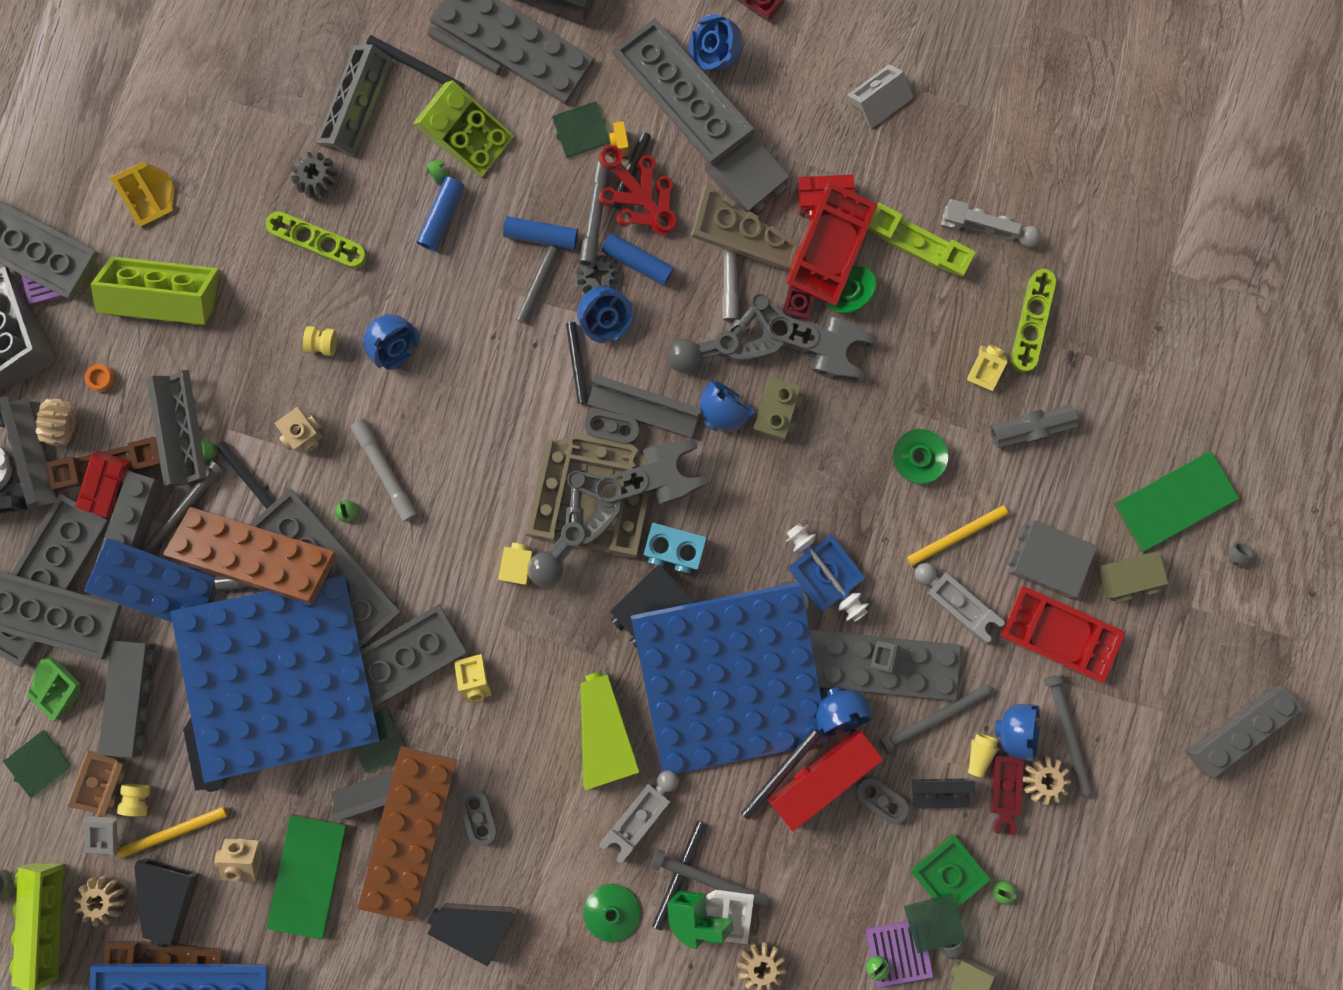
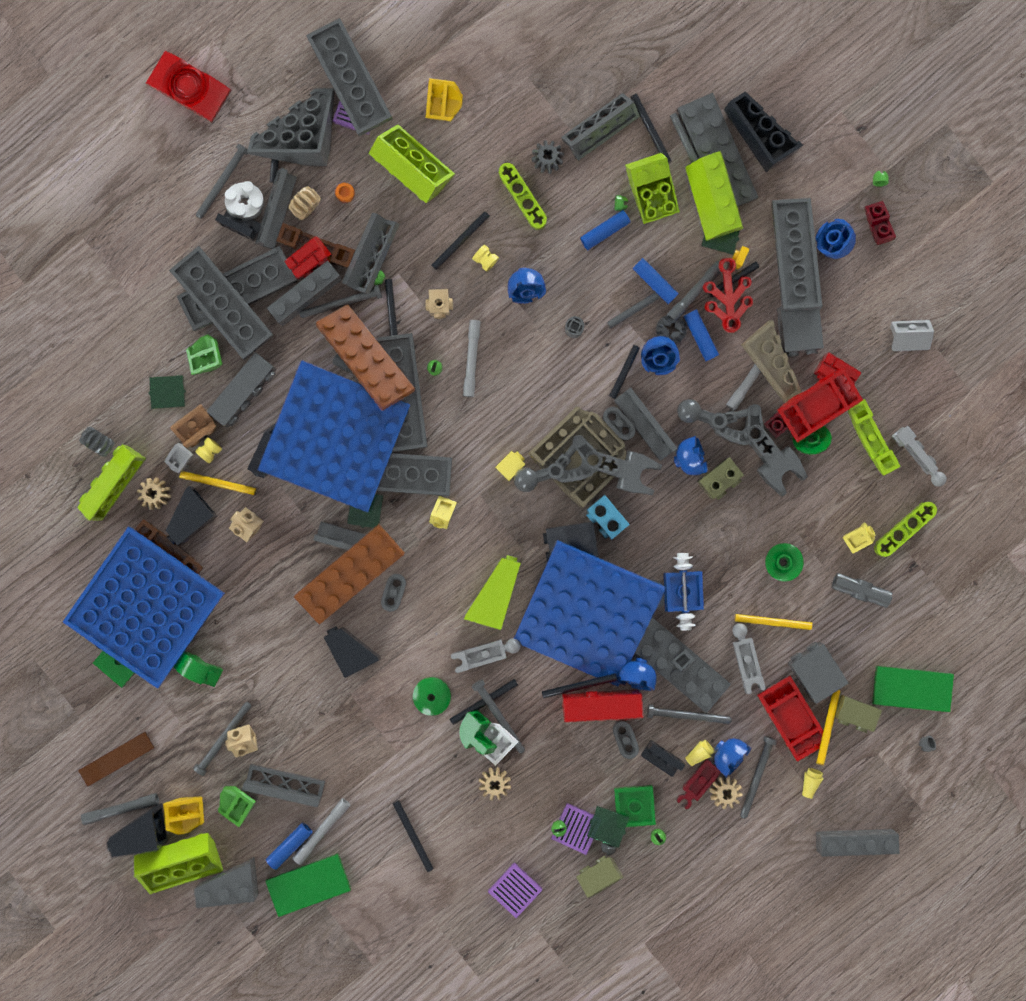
camera: 35 degrees right, 5 degrees up
(147, 581) = (297, 332): blue plate -> none
(276, 342) = (460, 240): none -> black bar
(306, 876) = (276, 559): green tile -> none
(481, 355) = (574, 327): none -> dark grey wheel
(540, 89) = (714, 196): none -> lime slope
(1111, 617) = (828, 728): none -> yellow bar
(1138, 695) = (812, 781): none -> light yellow cone

